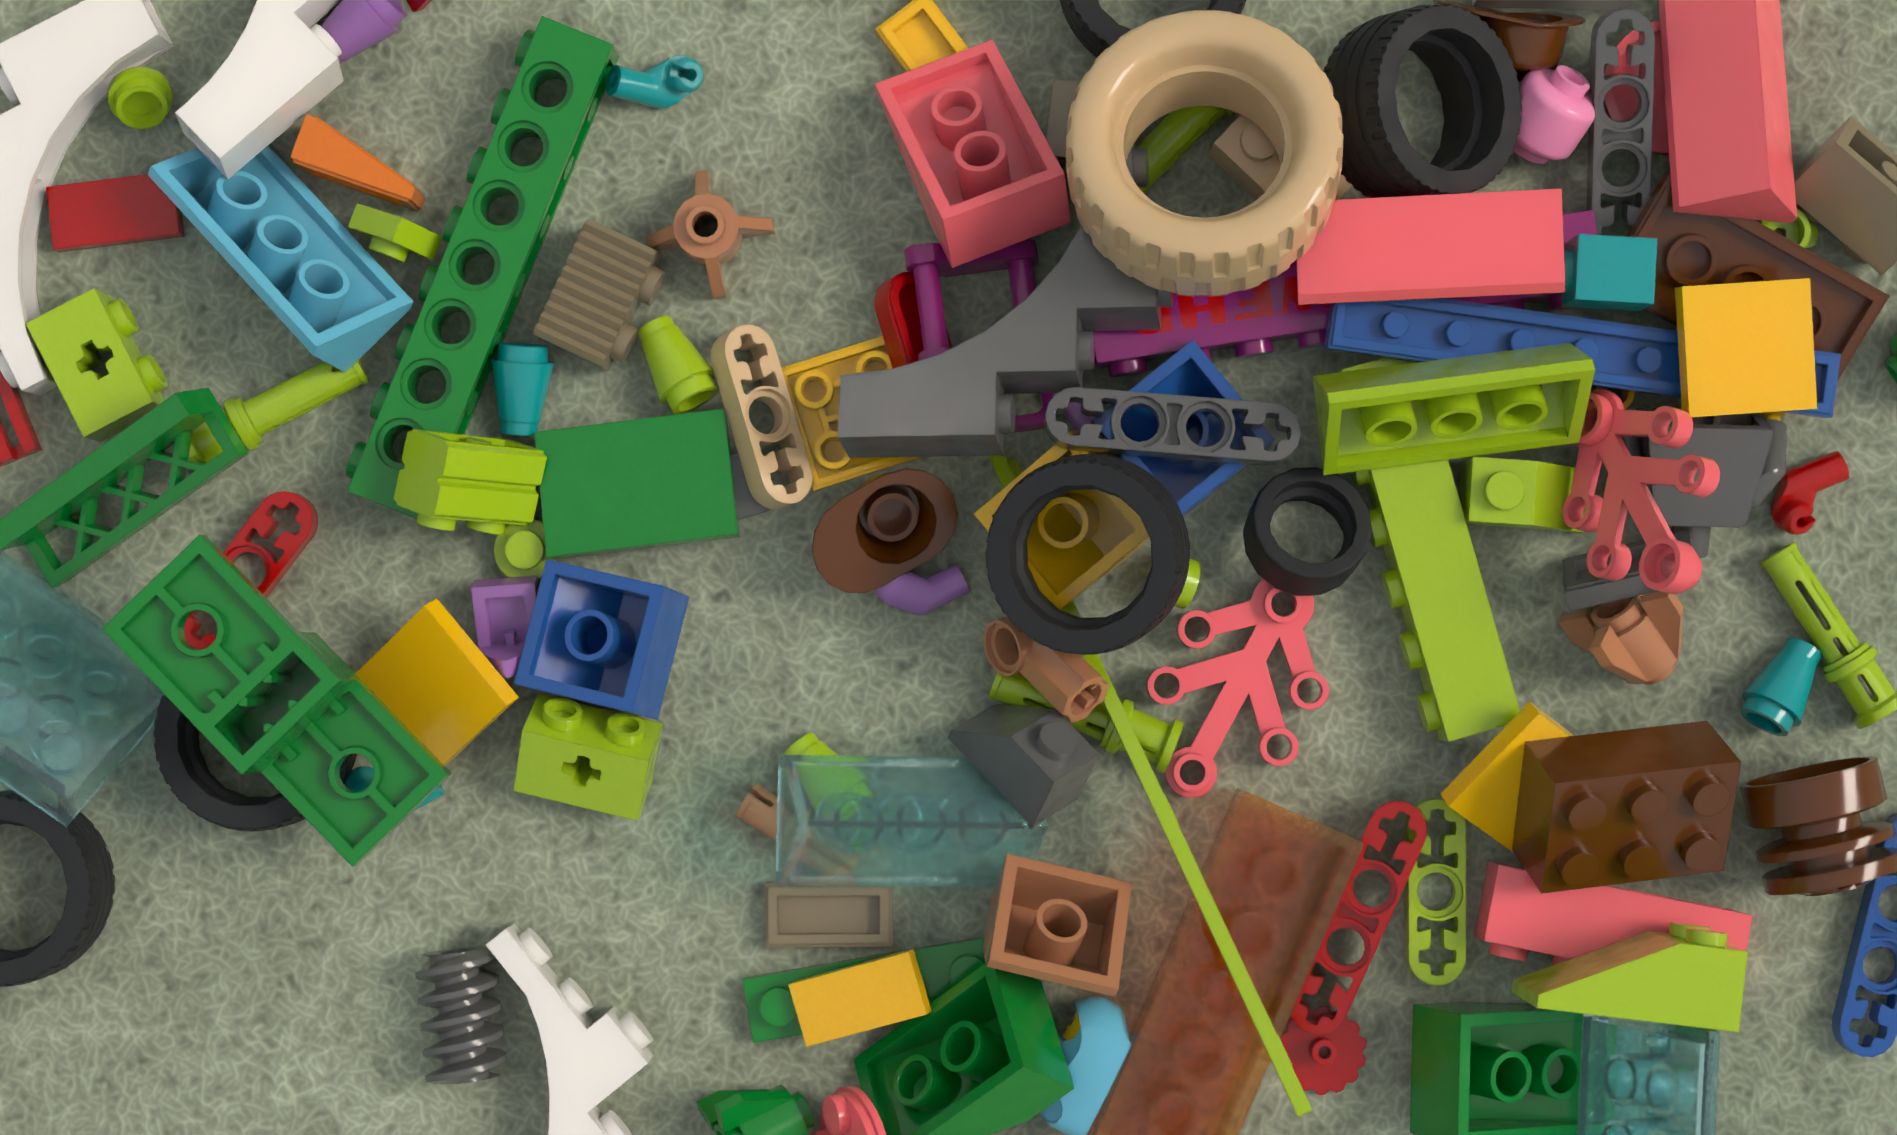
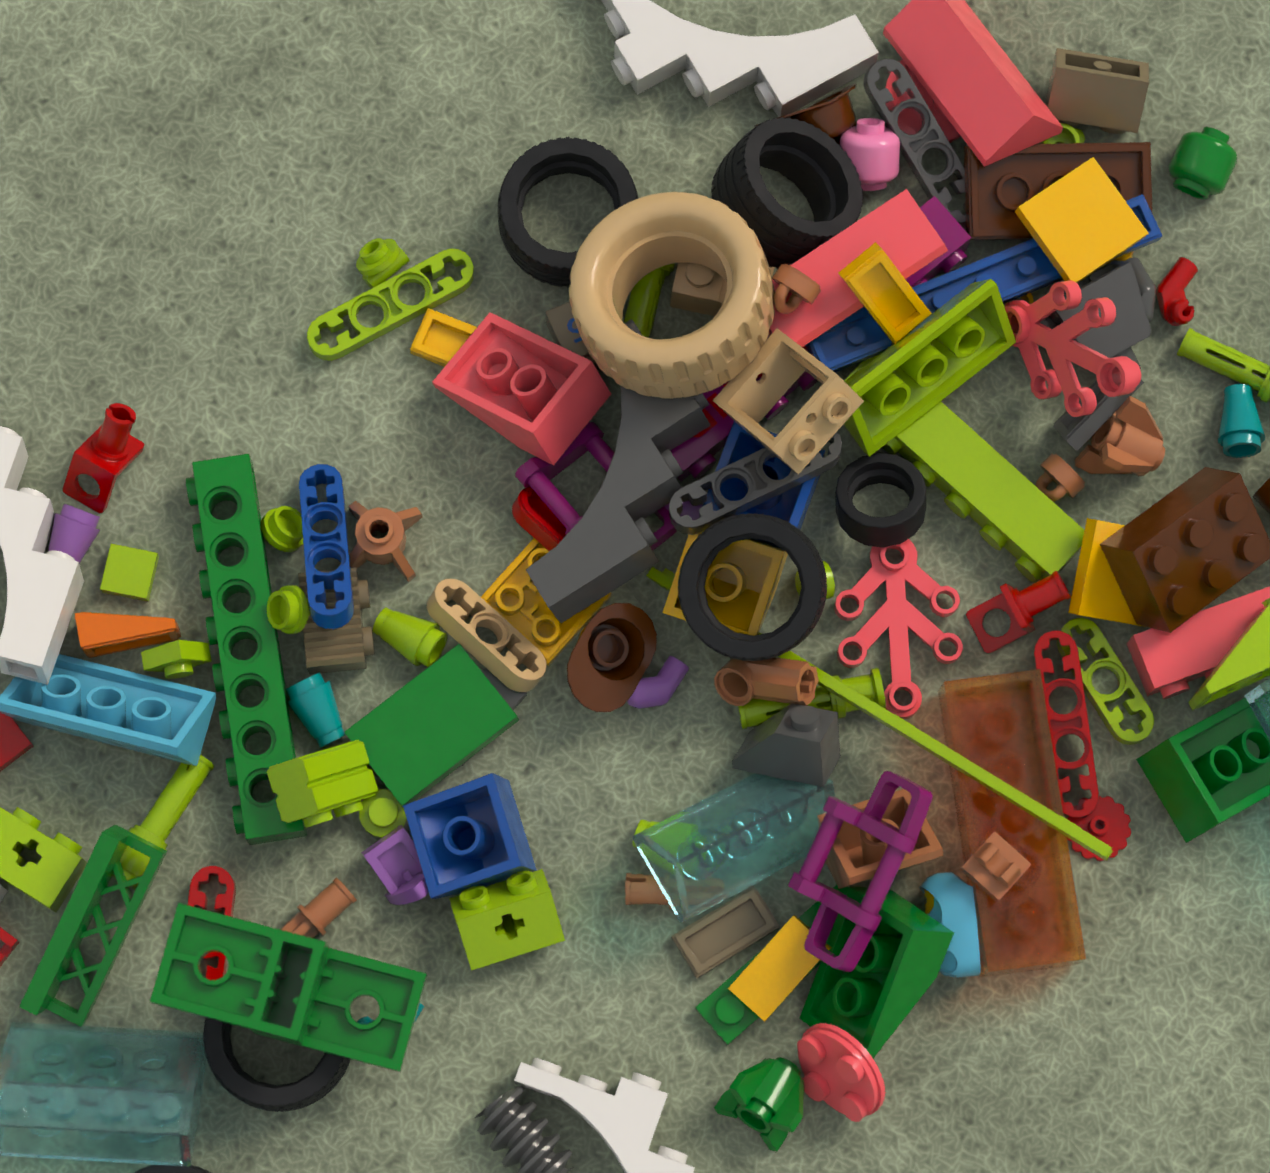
camera: 35 degrees left, 10 degrees down
(367, 623) = (320, 911): none -> nougat axle
(404, 100) = (129, 572): none -> lime tile
(438, 682) = (380, 923): yellow tile -> none
(547, 256) = (288, 609): none -> lime plate
(606, 155) = (283, 528): none -> lime plate
(632, 203) = (327, 545): none -> blue beam
(659, 85) = (292, 463): teal arm -> none
(963, 970) = (834, 901): none -> magenta bar
(1170, 1040) = (995, 866): none -> nougat tile
(1218, 331) = (782, 364): none -> tan window
(1360, 228) = (798, 284): none -> nougat tile
(1390, 753) = (1020, 607): none -> red bracket
(1457, 298) = (884, 293): none -> yellow tile
(1515, 493) = (997, 399): lime slope -> none
(1537, 628) = (1063, 475): none -> nougat tile
(1609, 272) = (969, 225): teal brick -> none

